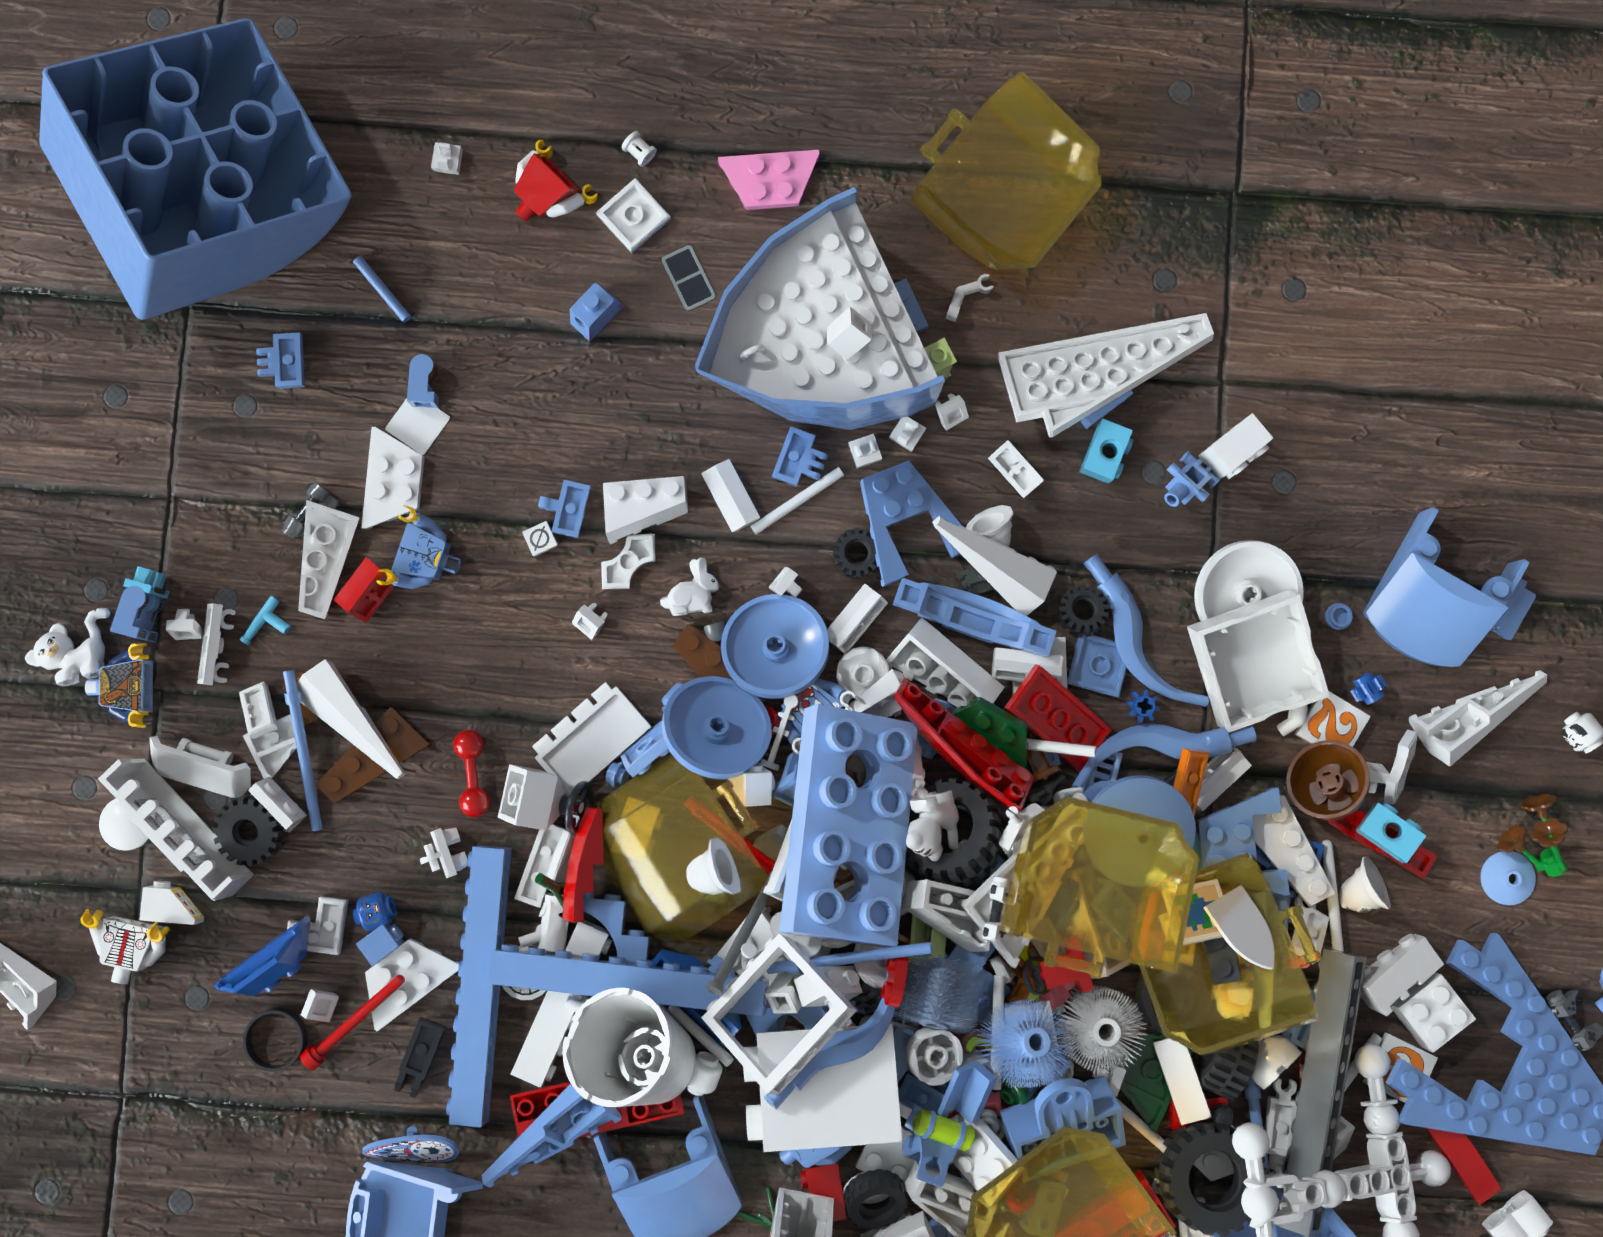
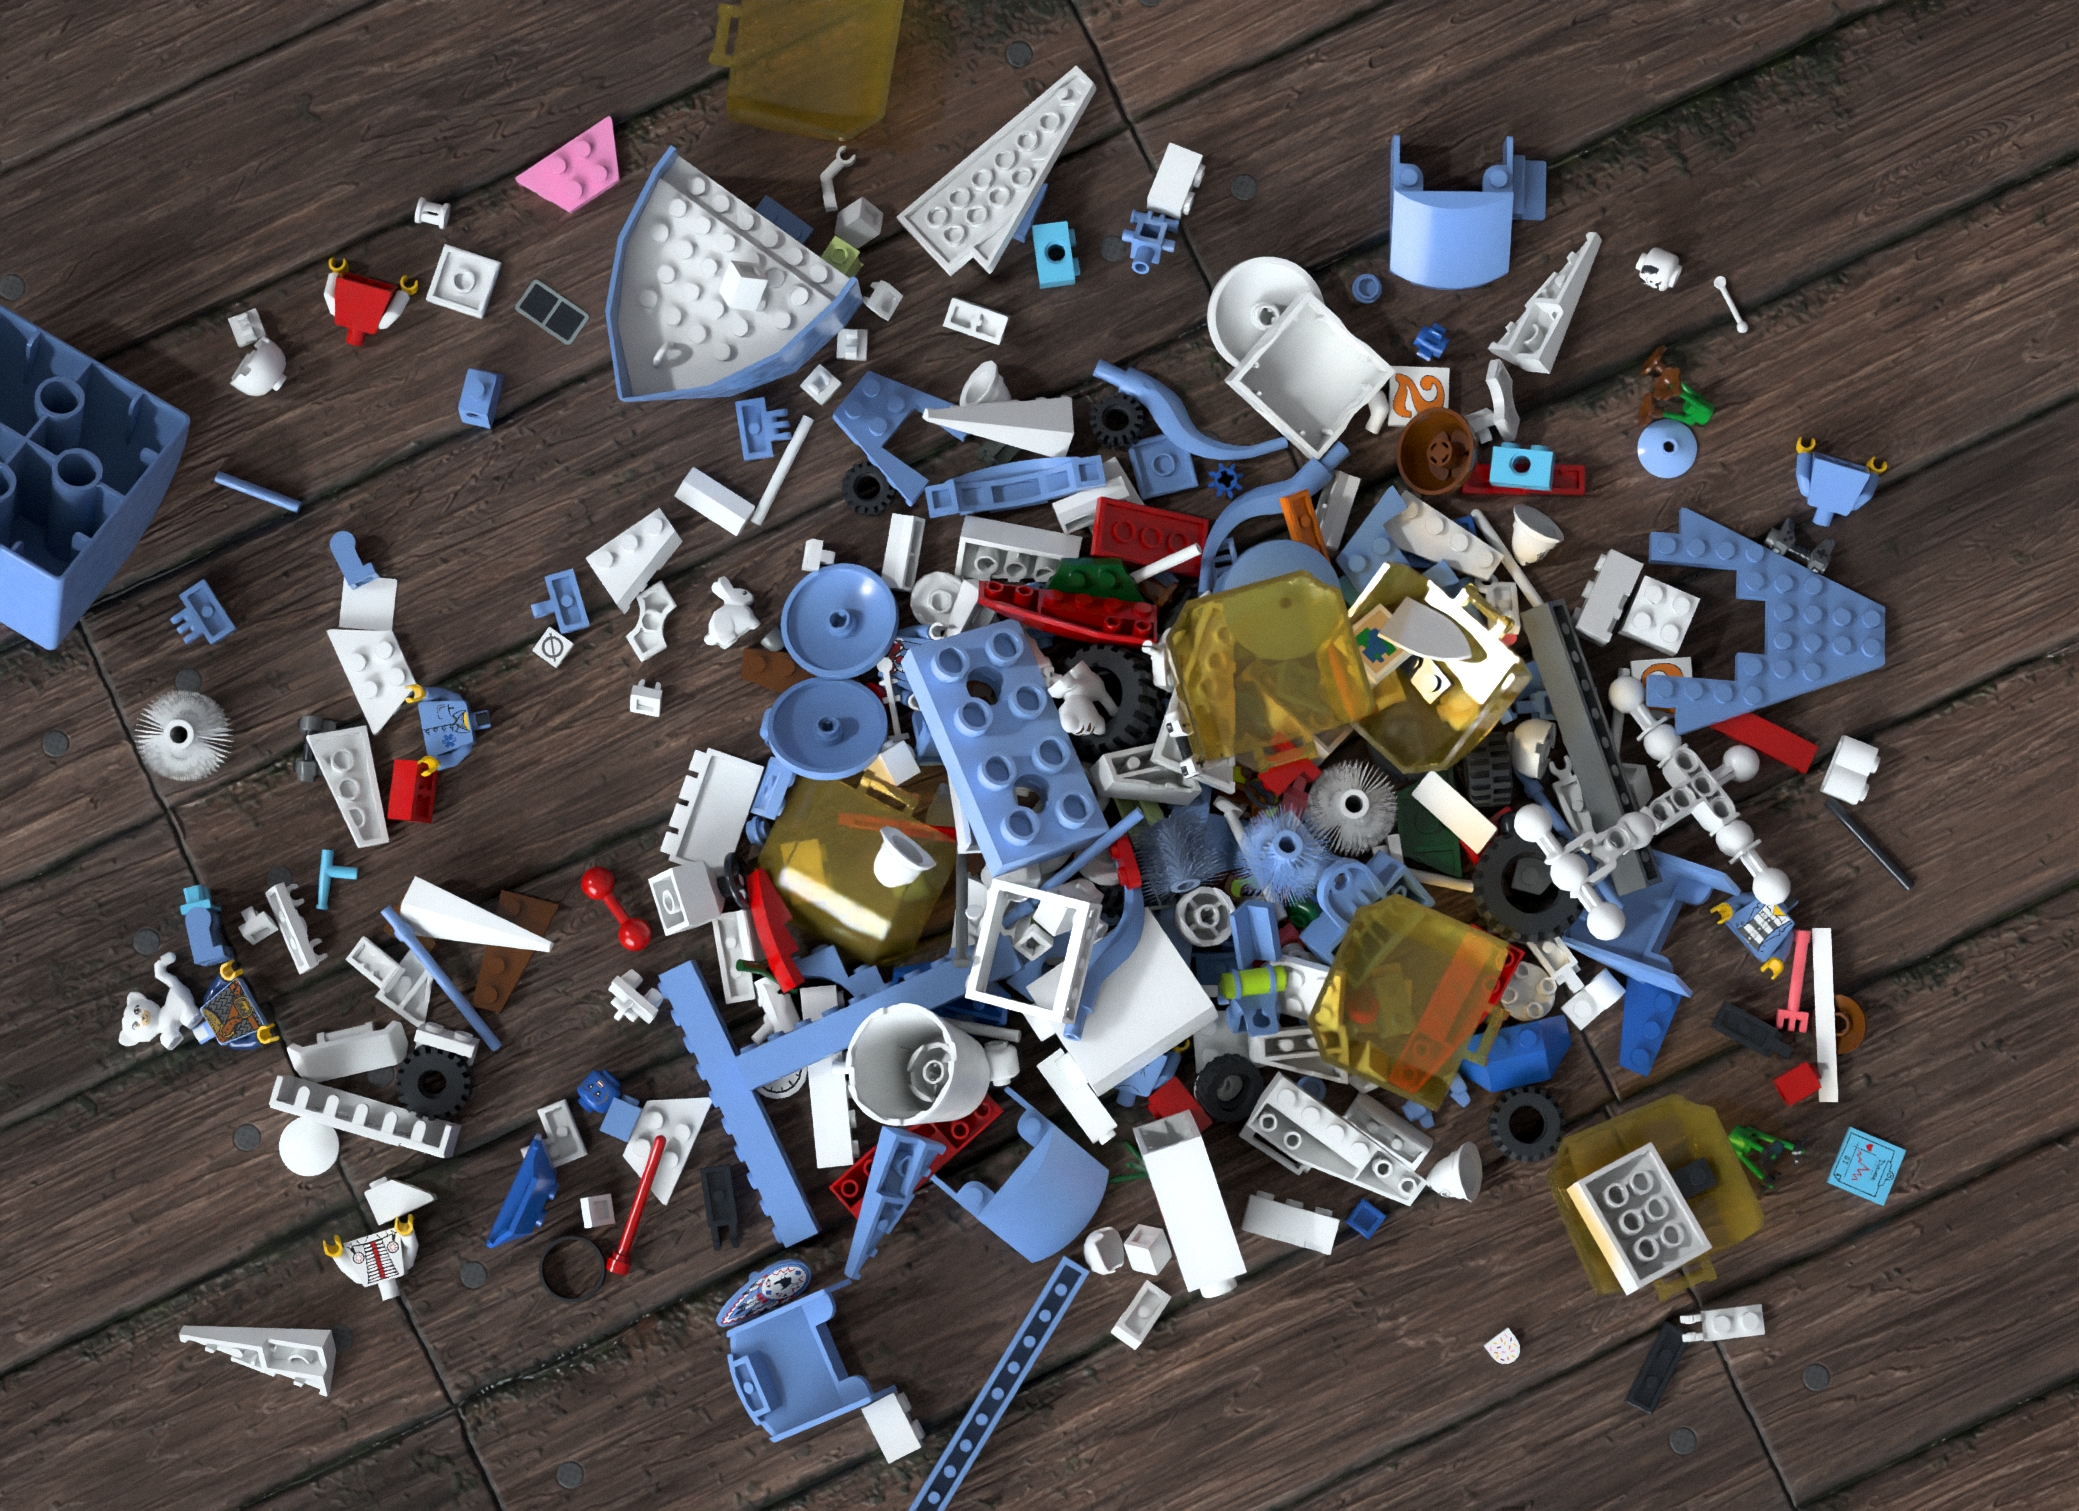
camera: 25 degrees left, 0 degrees up
(210, 445) = (172, 733): none -> white piece
(436, 195) = (260, 369): none -> white cylinder
(750, 1155) = (1081, 1103): none -> white window
(967, 340) = (859, 223): none -> white panel

